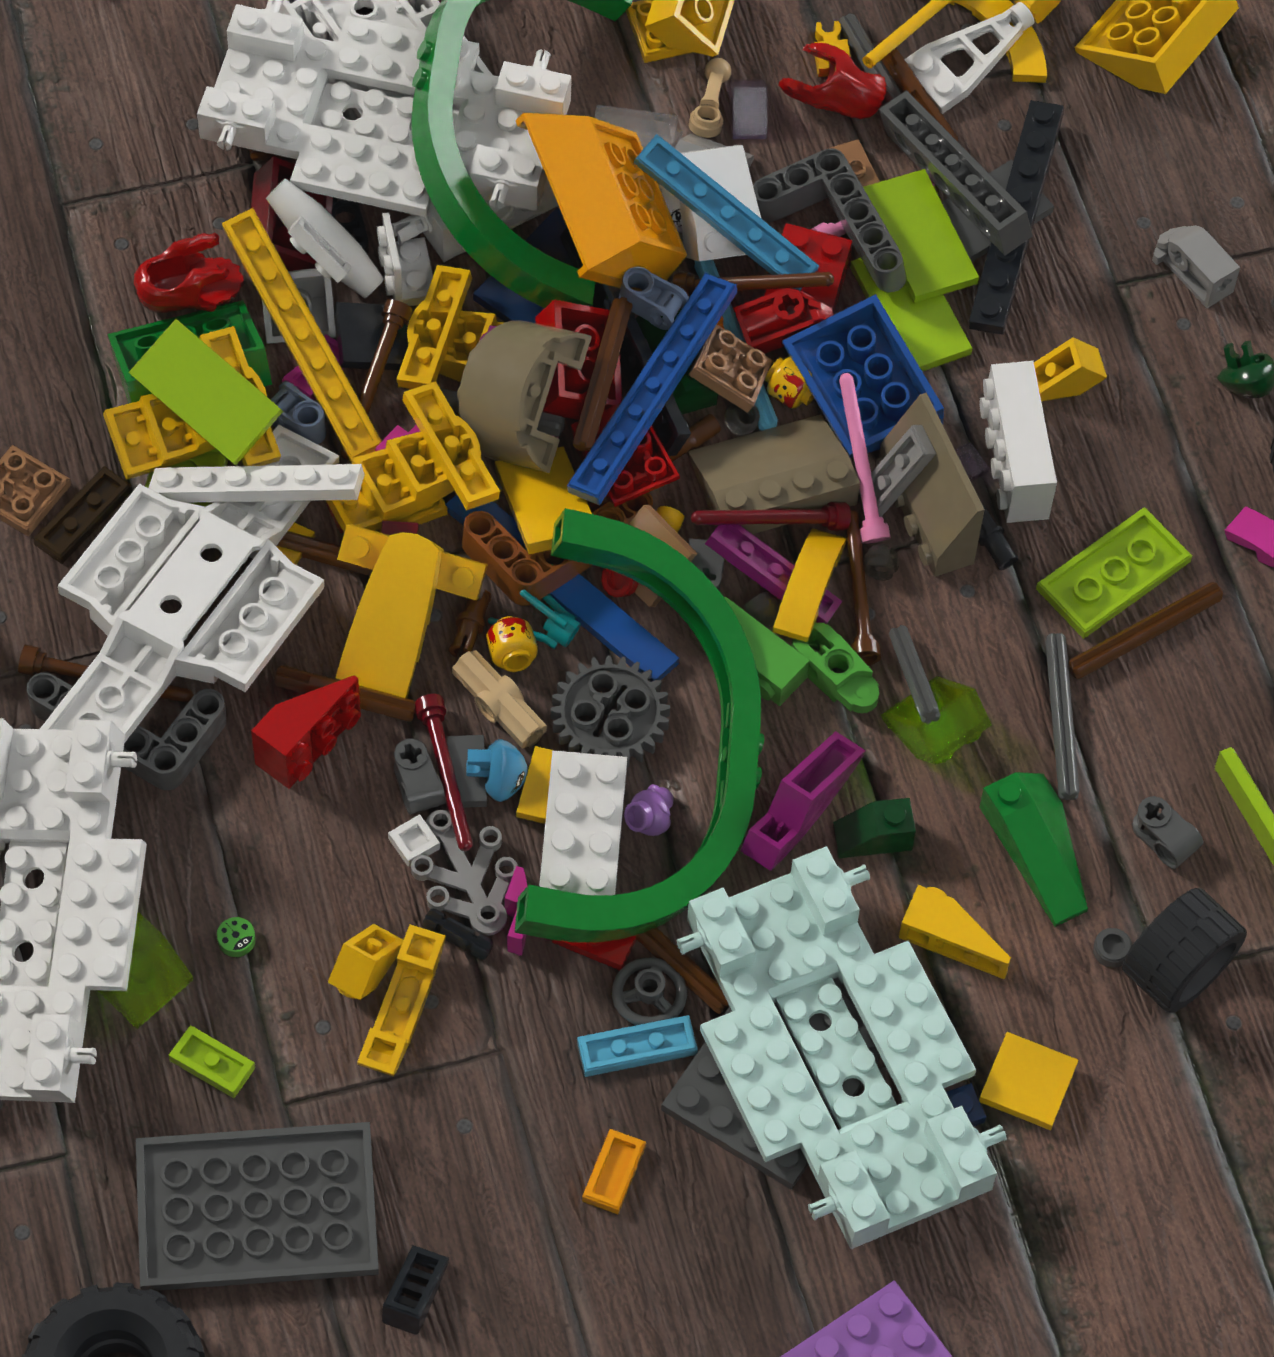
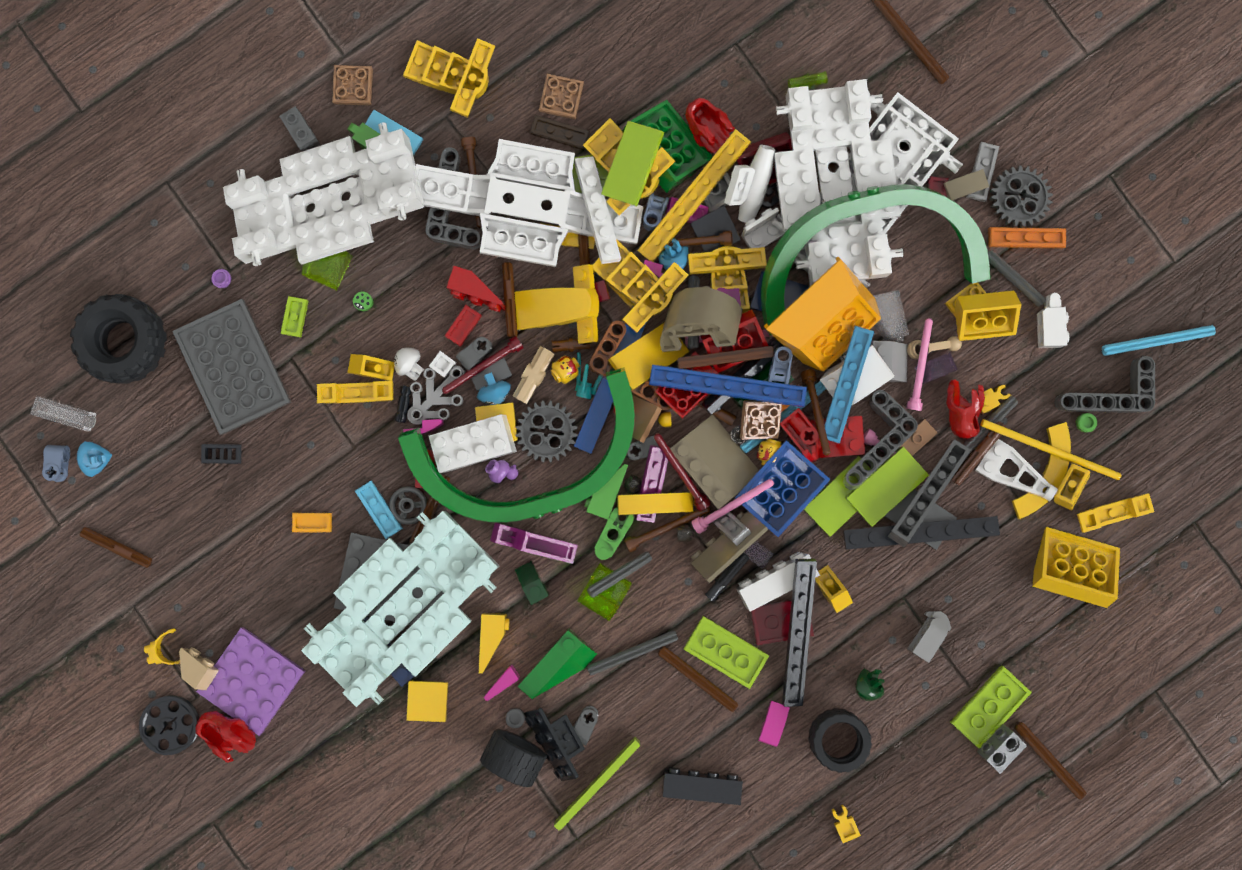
camera: 70 degrees right, 25 degrees up
(77, 1169) = (221, 278): none -> medium lavender plate
(181, 120) = (808, 80): none -> clear neon green pin
(358, 783) = (463, 325): none -> red plate
(385, 896) = (406, 363): none -> white piece
(387, 407) = (676, 254): none -> dark azure piece
(791, 151) = (915, 401): none -> bright pink piece
(1037, 934) = (508, 678): none -> dark pink slope
(1091, 470) = (772, 622): none -> dark red tile
(1121, 430) = (799, 632): none -> plate
(1172, 868) = (557, 740): none -> black bracket

